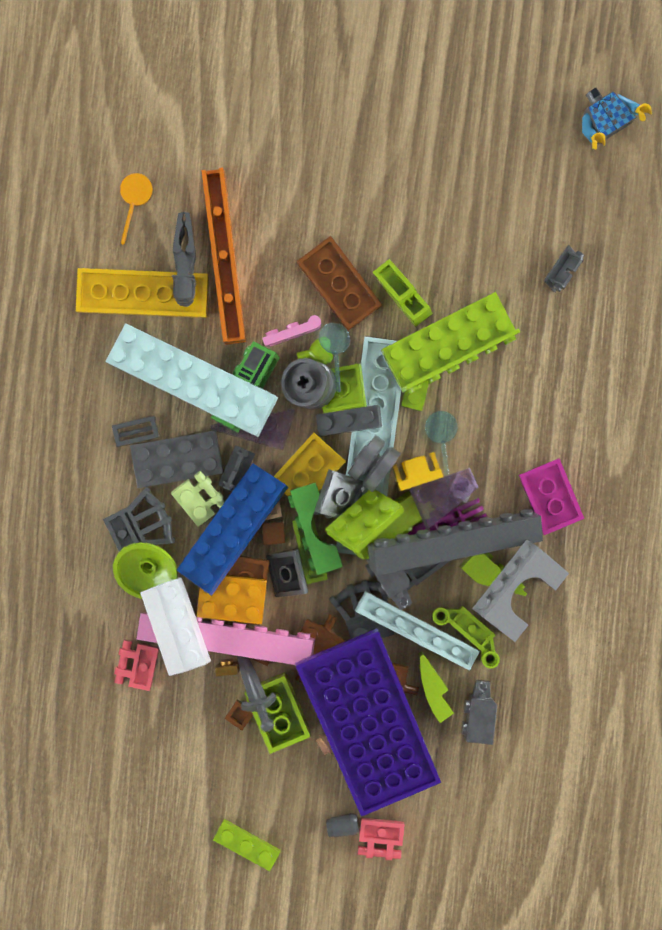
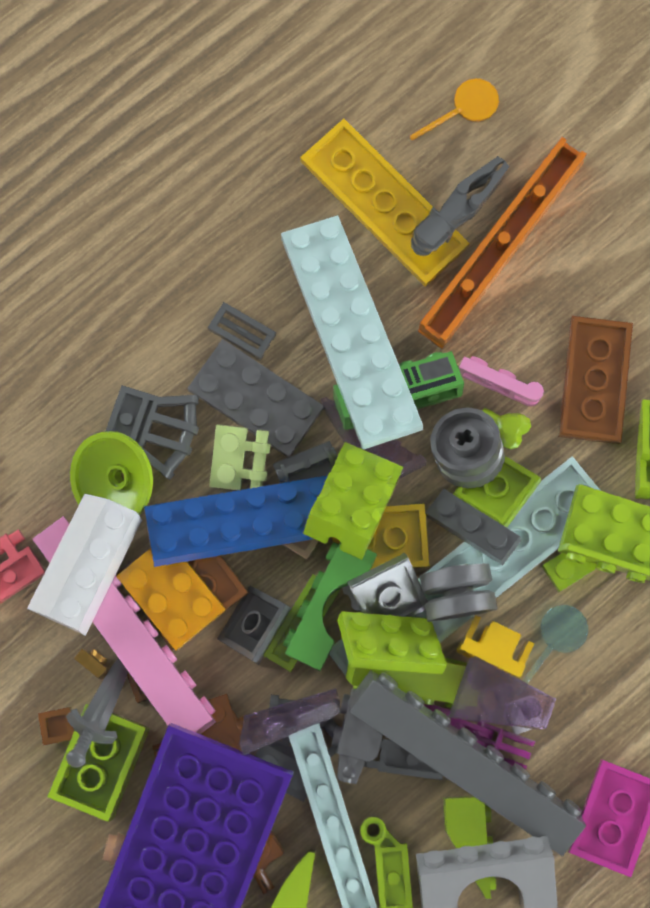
camera: 40 degrees right, 10 degrees down
(273, 533) = (280, 569): dark orange tile -> none
(277, 467) = (353, 500): none -> lime piece
(335, 340) = (537, 432): clear light blue piece -> none
(348, 606) = (286, 719): none -> clear purple wing

